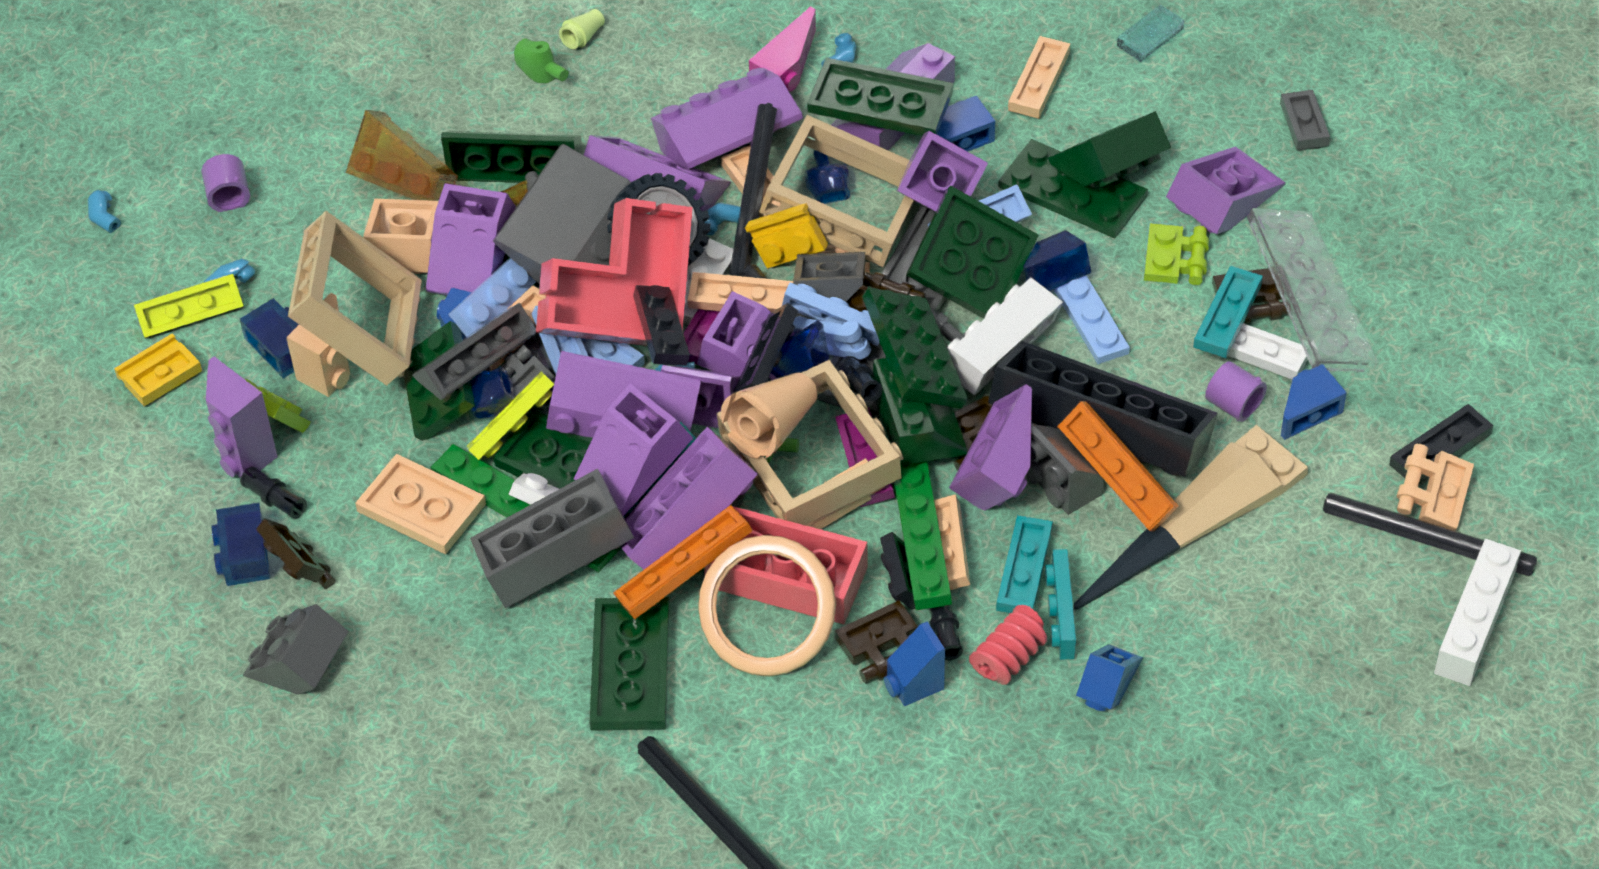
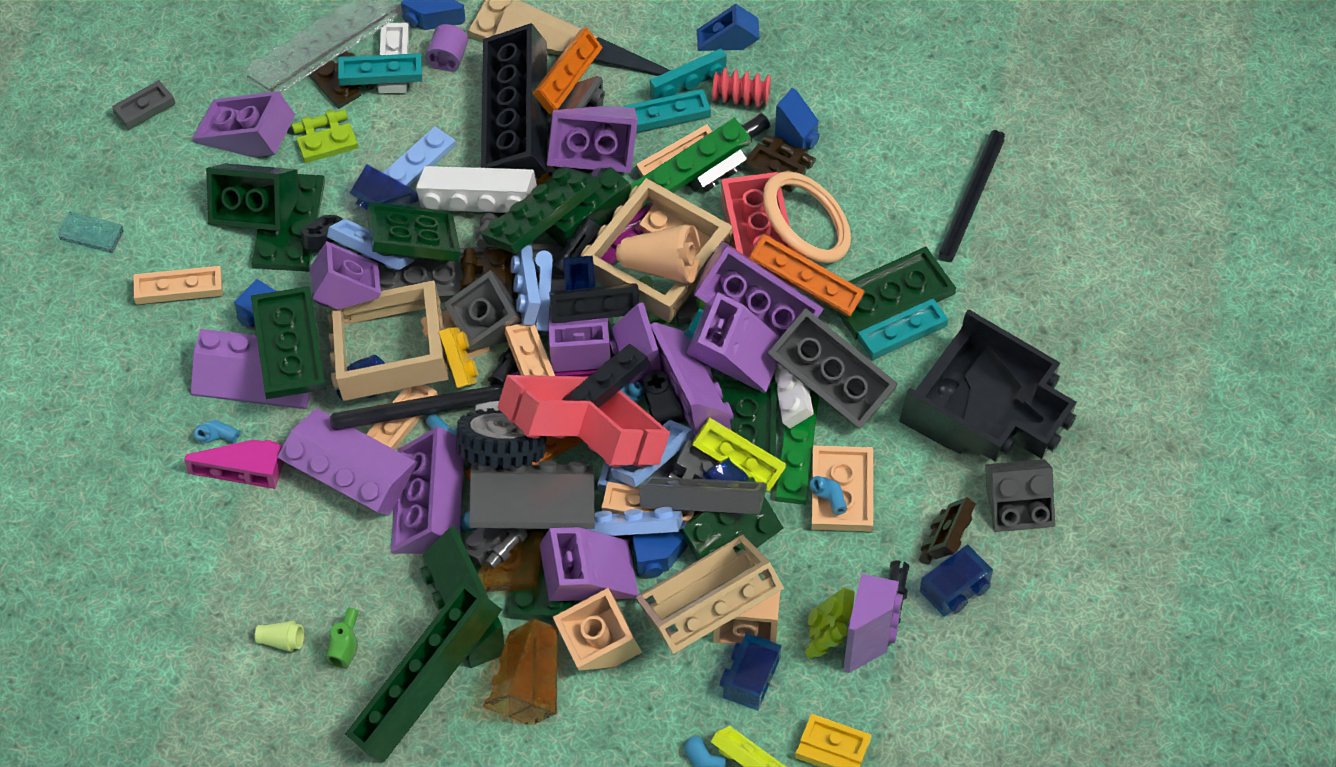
camera: 120 degrees left, 5 degrees up
(414, 478) = (830, 491): none -> dark azure arm
(417, 663) = (990, 395): none -> black panel
(444, 77) = (423, 671): none -> dark green brick
(573, 651) = (902, 329): none -> teal plate
(1033, 193) = (315, 233): none -> black beam

